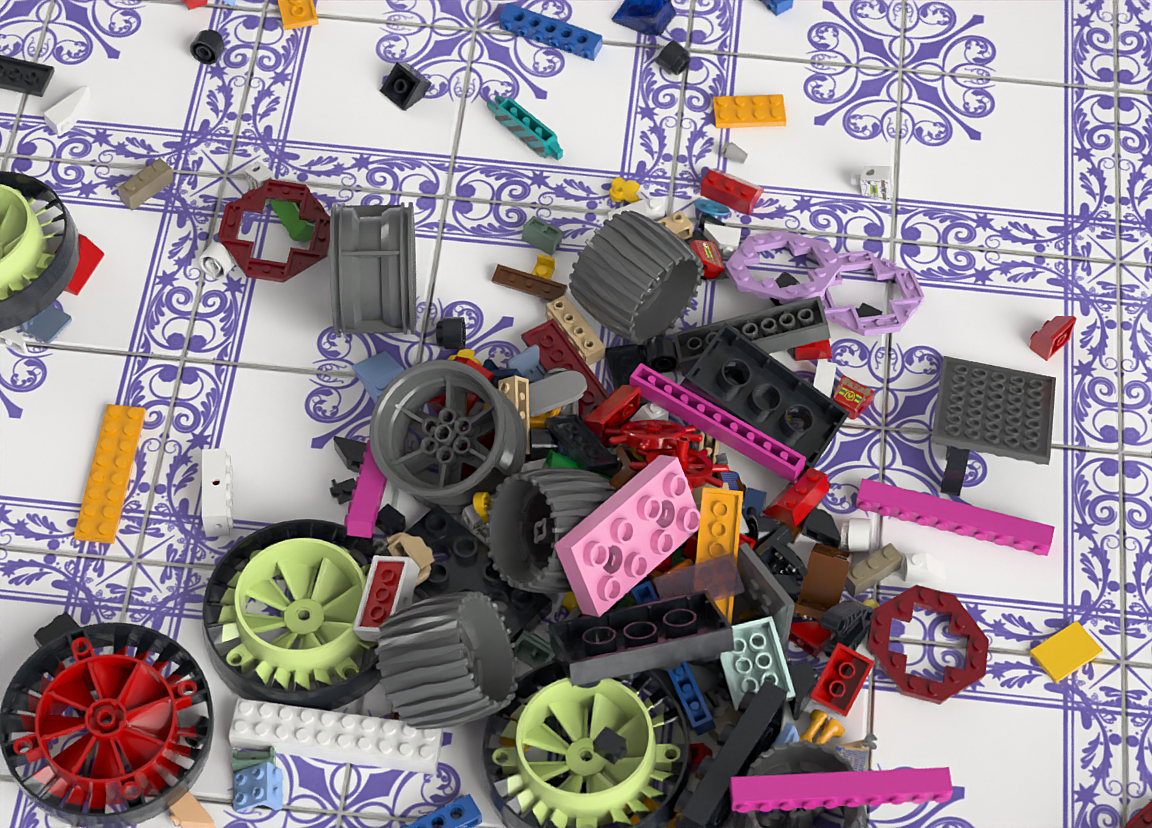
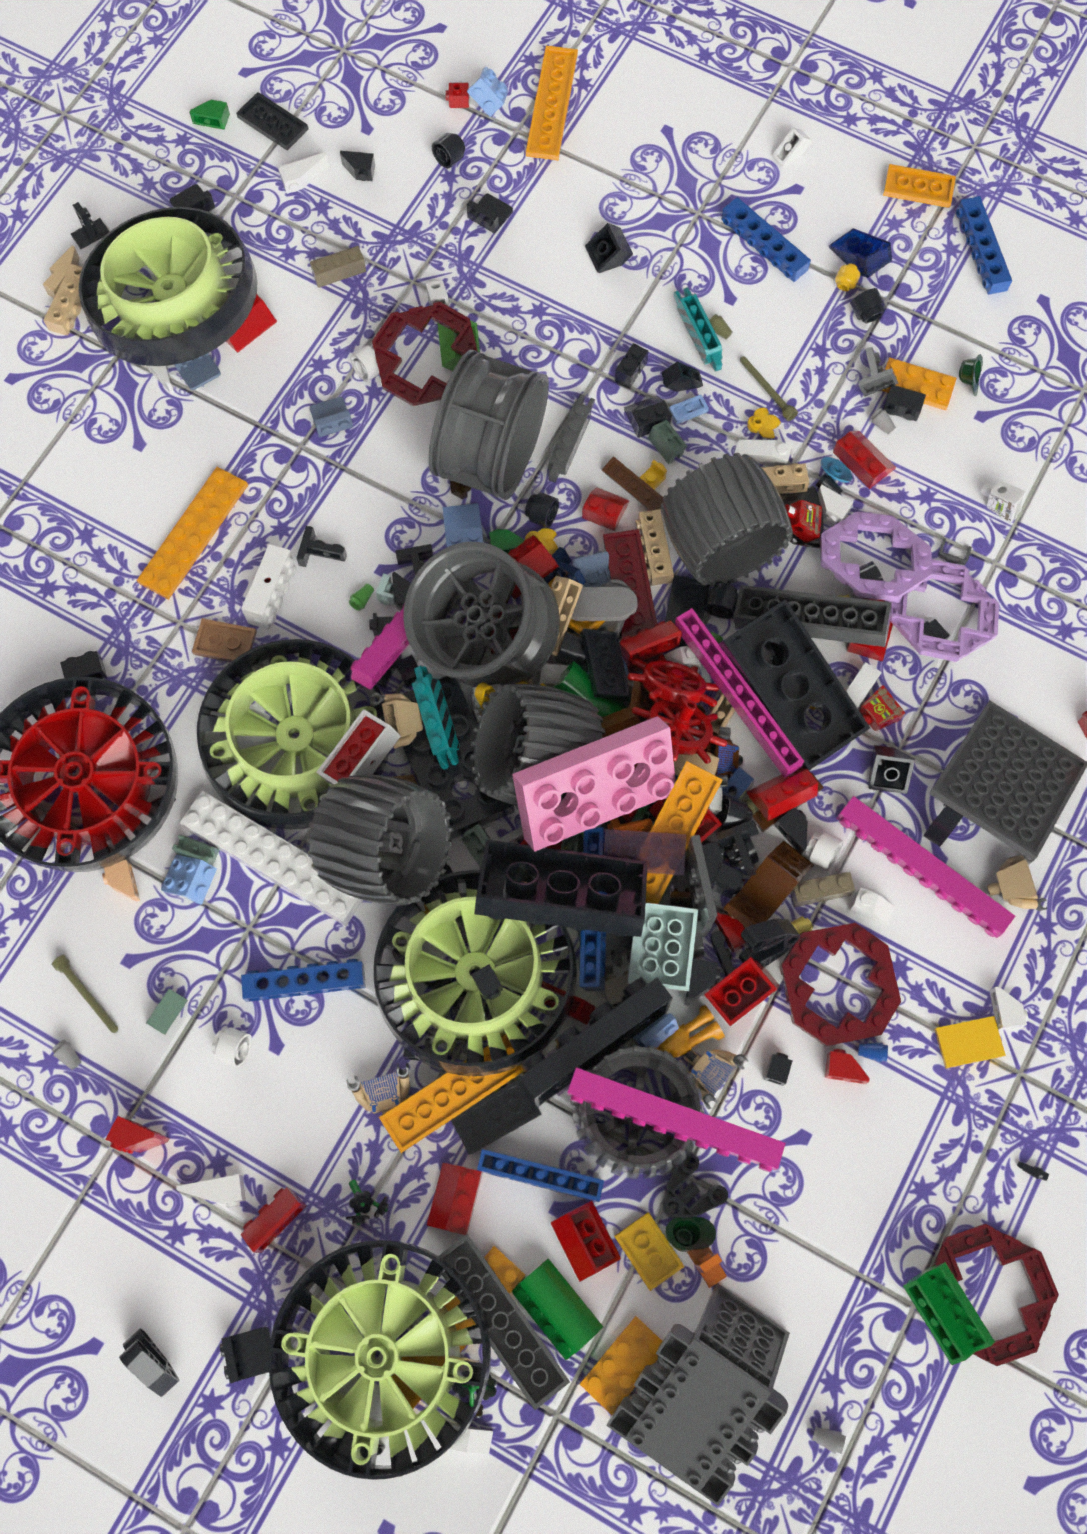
camera: 25 degrees right, 15 degrees up
(122, 87) = (359, 164): none -> black slope
(189, 559) = (222, 640): none -> medium nougat plate
(203, 320) = (331, 416): none -> sand blue bracket
(248, 443) = (318, 548): none -> black bracket
(273, 90) = (489, 212): none -> black bracket
(310, 473) = (360, 598): none -> bright green cone
(332, 461) = (384, 591): none -> light aqua bracket
(349, 417) = (414, 555): none -> black bracket
(361, 341) = (459, 489): none -> dark brown tile
(442, 544) = (436, 717): none -> teal hinge
(448, 262) = (570, 438): none -> dark grey hinge
(476, 180) = (631, 365): none -> black piece
(510, 314) = (604, 508): none -> red slope
(511, 218) = (647, 414): none -> black slope
(528, 175) = (681, 377): none -> black slope
(546, 119) = (720, 326): none -> olive cone
(548, 201) = (688, 409): none -> light blue plate
(642, 40) = (847, 277): none -> yellow head
(644, 173) = (789, 412): none -> olive piece
(713, 117) = (879, 379): none -> dark grey bracket
(746, 130) = (904, 403): none -> black brick
(792, 84) = (971, 371): none -> dark green piece
(801, 655) = (724, 955): none -> black hinge
(851, 248) = (951, 558): none -> dark grey piece
(884, 446) = (890, 770): none -> black slope
(907, 740) = (778, 1069): none -> black brick
(967, 715) = (844, 1068): none -> red slope
(986, 691) = (874, 1051): none -> blue cone
(1043, 500) = (1017, 884): none -> tan torso
(1085, 610) = (1007, 1010): none -> white slope

